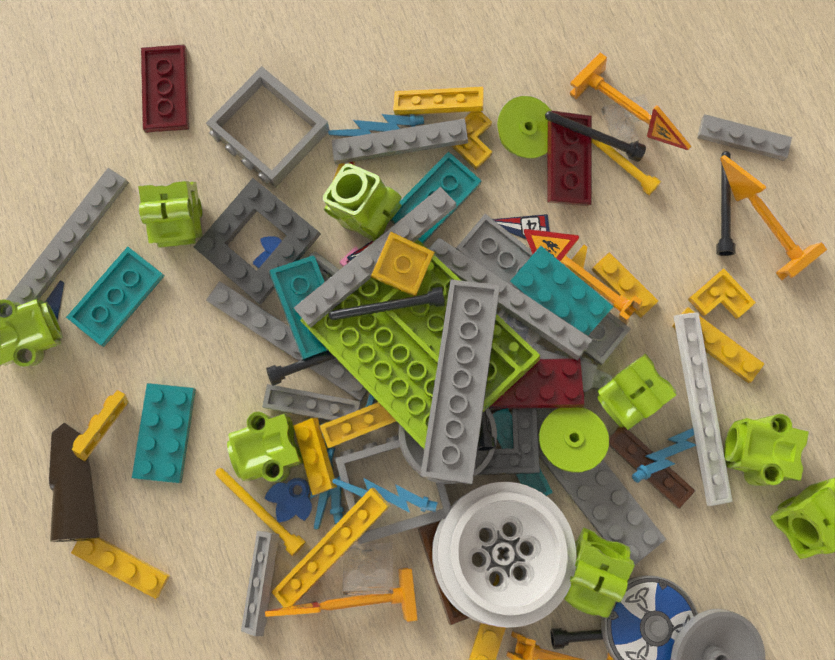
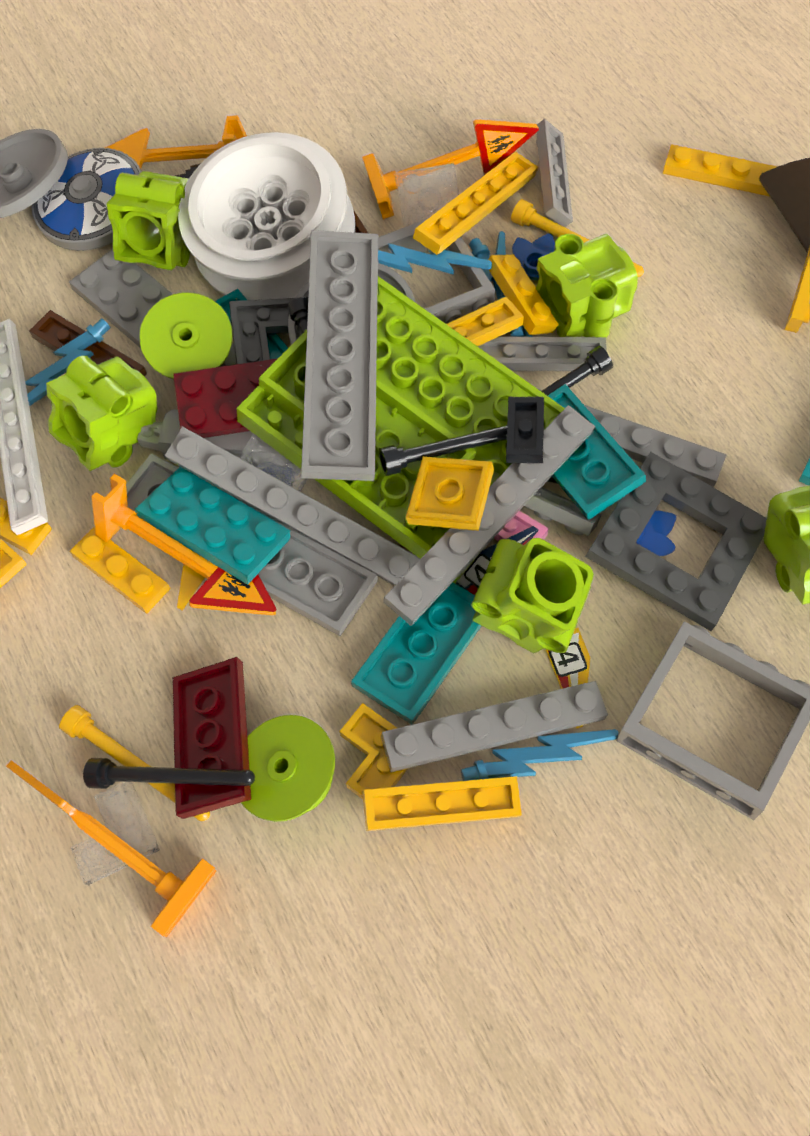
camera: 175 degrees right, 15 degrees down
(163, 433) = (724, 302): teal plate -> none
(343, 299) = (525, 430): none -> black plate
(517, 224) = (275, 634): sticker -> none

